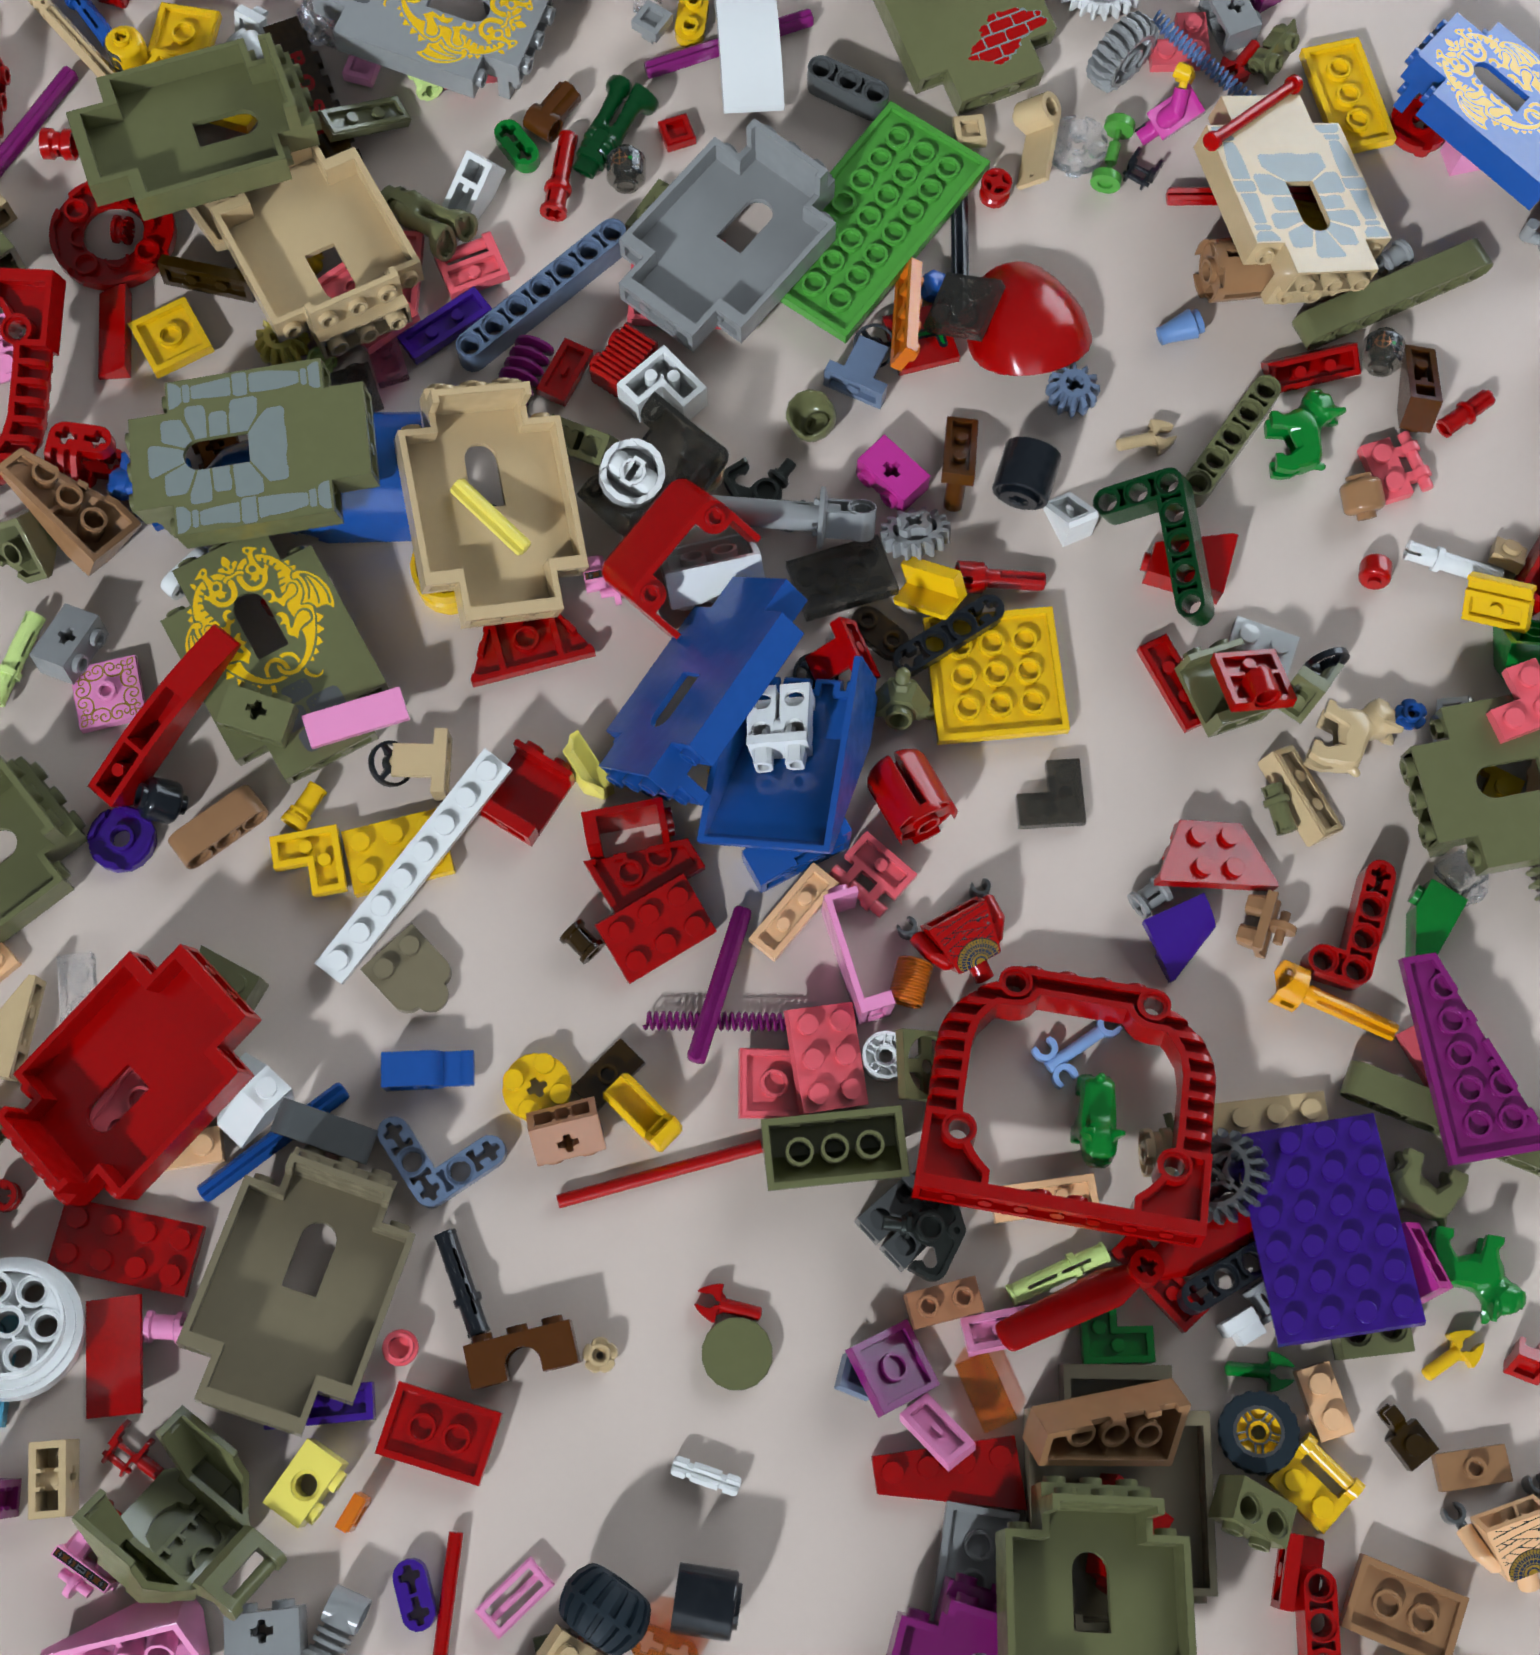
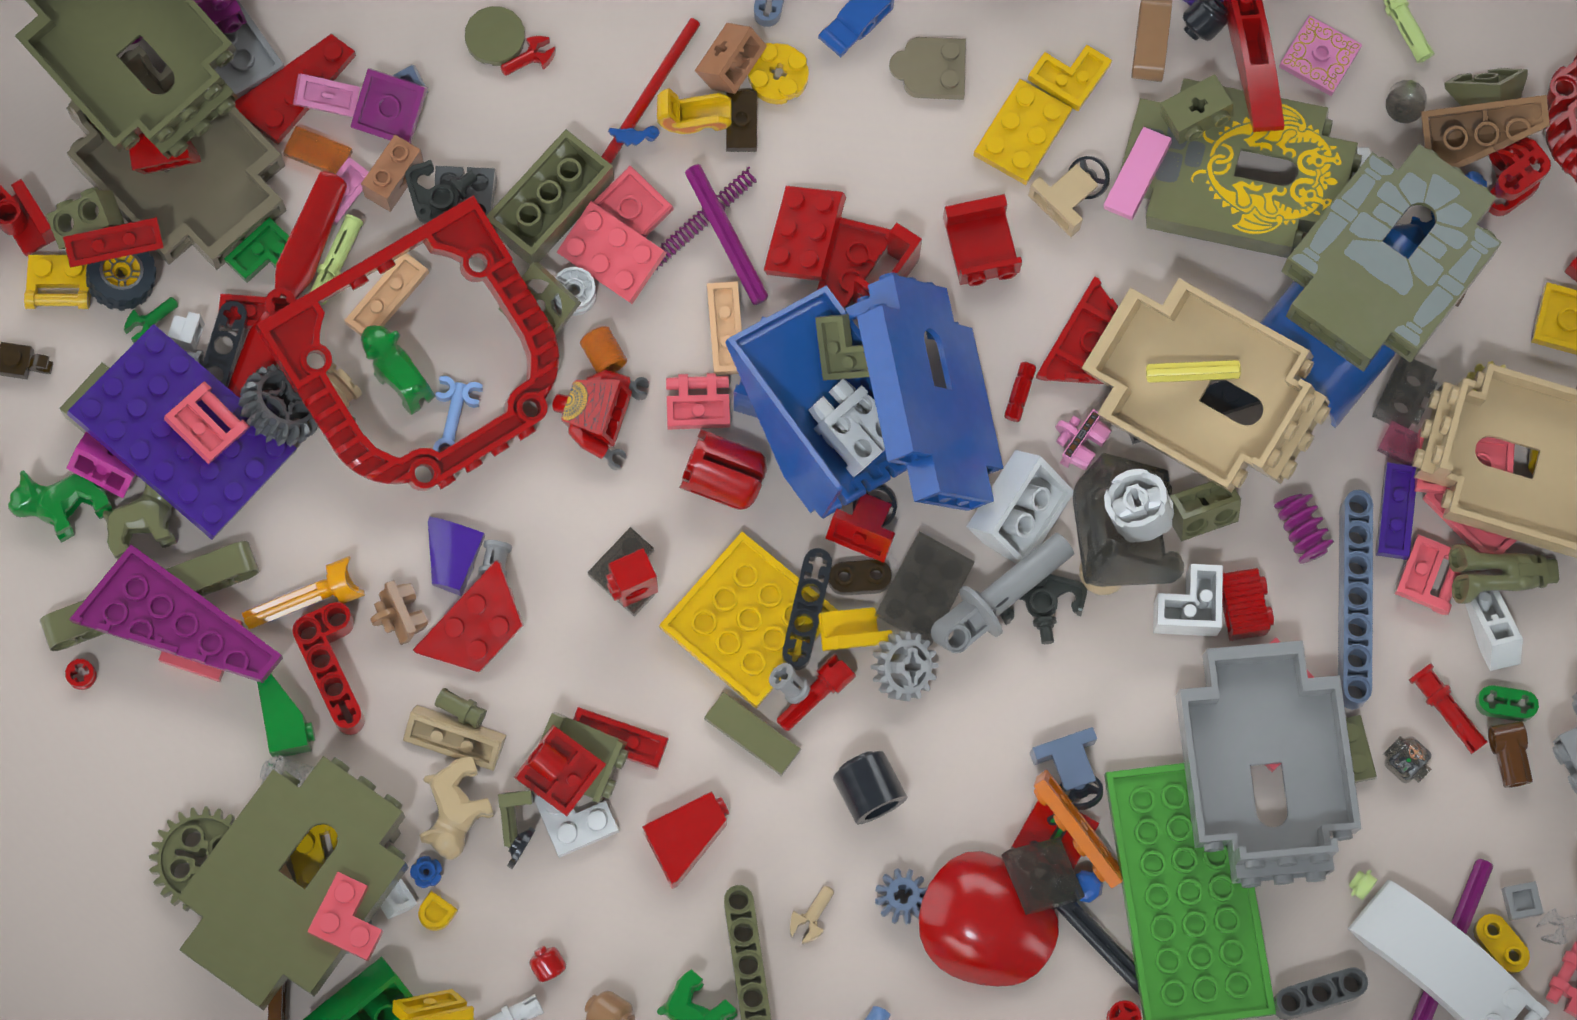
camera: 135 degrees right, 0 degrees up
(69, 644) = (1382, 41): light grey brick -> none
(92, 589) = (1406, 101): none -> clear smoke head
(300, 813) = (1111, 94): yellow pin -> none
(413, 866) = (999, 126): white plate -> none
(564, 372) = (1276, 557): red plate -> none
(582, 941) = (844, 182): dark brown bush -> none
(586, 768) = (965, 290): light yellow slope -> none
(602, 136) = (1449, 766): dark green piece -> none
(618, 655) = (1020, 391): none -> red axle
(656, 535) = (1073, 496): red windscreen -> none
(677, 132) = (1407, 833): red tile -> none
(712, 1146) = (634, 137): none -> blue piece
(739, 123) = (1362, 884): none -> yellowish green plate
(742, 778) = (837, 353): none -> olive plate
(811, 415) = (1067, 687): olive hair -> none
(865, 1009) = (620, 299): bright pink panel -> none
(902, 701) = (792, 530): olive rock -> none
(904, 478) = (951, 707): dark pink brick -> none
(958, 460) = (933, 757): reddish brown piece -> none
(1022, 595) = (789, 683): none -> light grey bush
(1068, 765) = (631, 578): none -> red brick
(1071, 518) = (810, 791): white slope -> none
(1071, 596) = (752, 734): none -> olive tile
(1110, 1427) = (219, 177): medium nougat wedge -> none
(1174, 533) = (710, 829): dark green beam -> none
(1253, 1457) = (113, 242): none -> red plate
(1270, 1112) = (287, 484): tan plate -> none
(1318, 1208) = (200, 429): none -> coral plate
(1323, 1401) = (94, 336): light nougat plate -> none
(1426, 681) = (436, 913): none -> yellow tile
(1454, 1355) = (30, 442): yellow bar -> none

